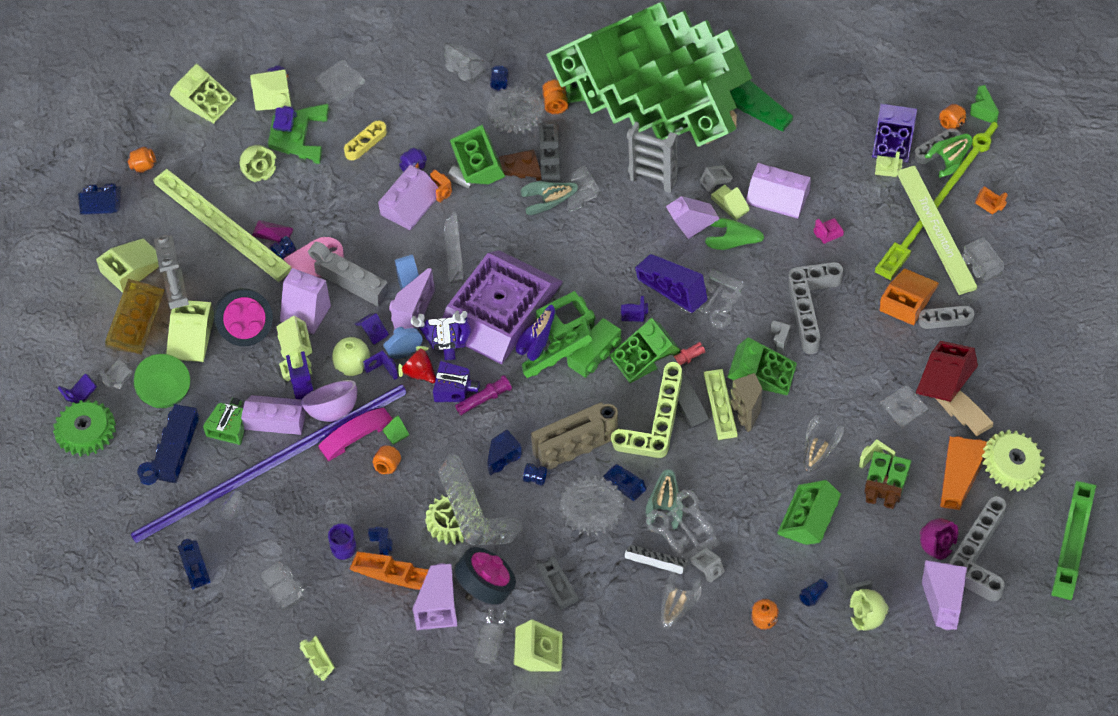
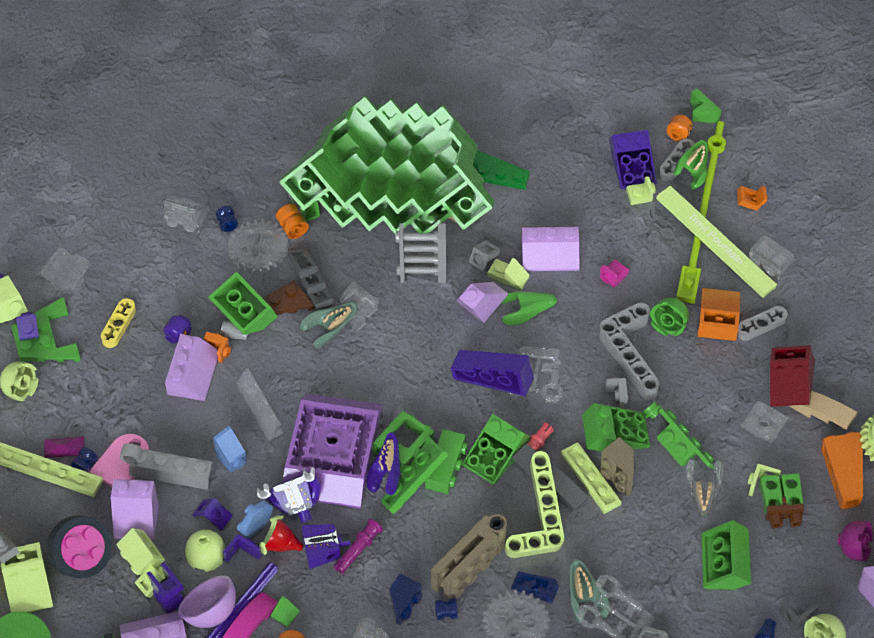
camera: 25 degrees left, 0 degrees up
(412, 300) = (245, 476): lavender slope -> none
(634, 312) = (469, 413): dark purple bracket -> none
(804, 362) = (652, 410): none -> bright green plate
(816, 399) = (679, 443): none -> bright green bracket
(859, 283) = (669, 316): none -> bright green cylinder

